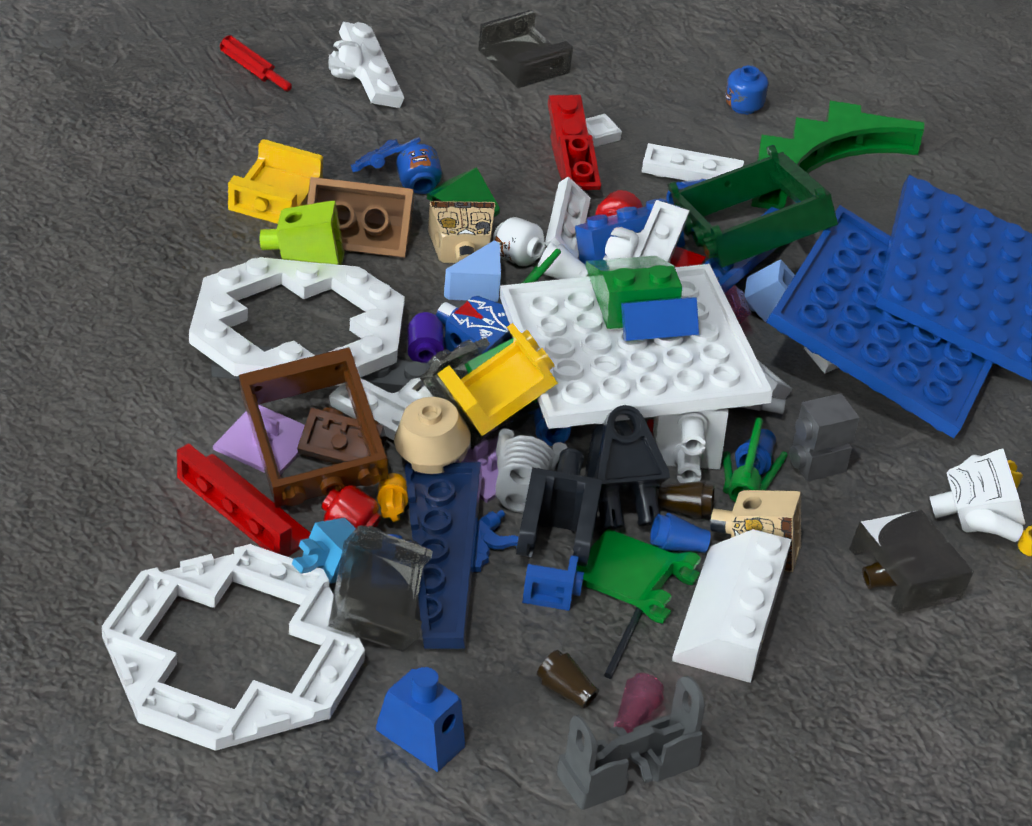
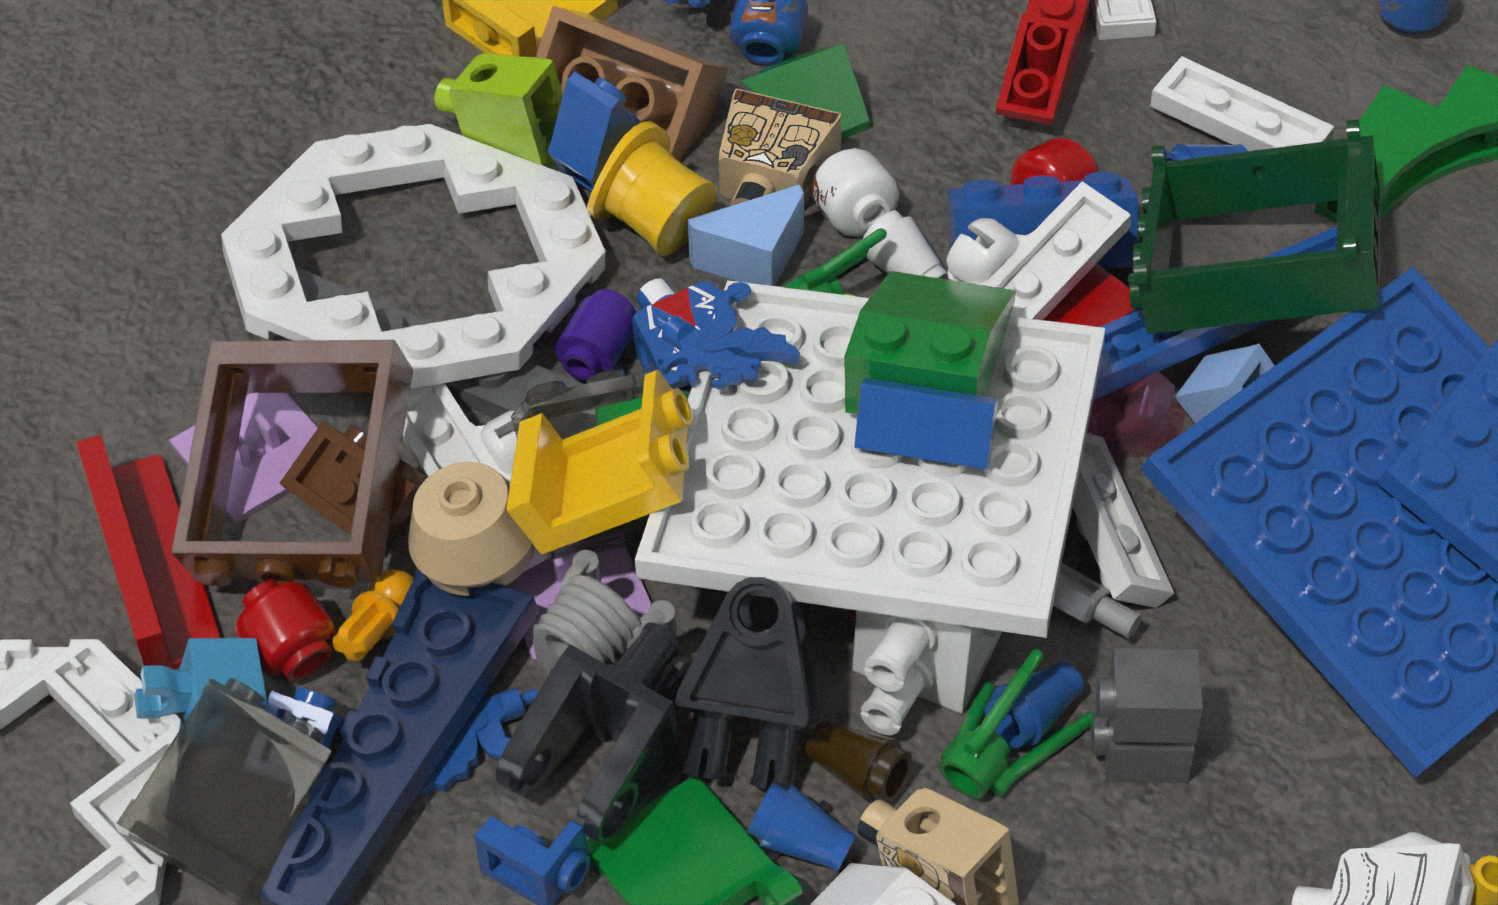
camera: 30 degrees right, 10 degrees up
(371, 238) = (588, 128): none -> blue slope
(416, 261) = (651, 189): none -> yellow piece
(532, 315) = (720, 343): none -> blue piece
(568, 211) = (974, 151): white plate -> none

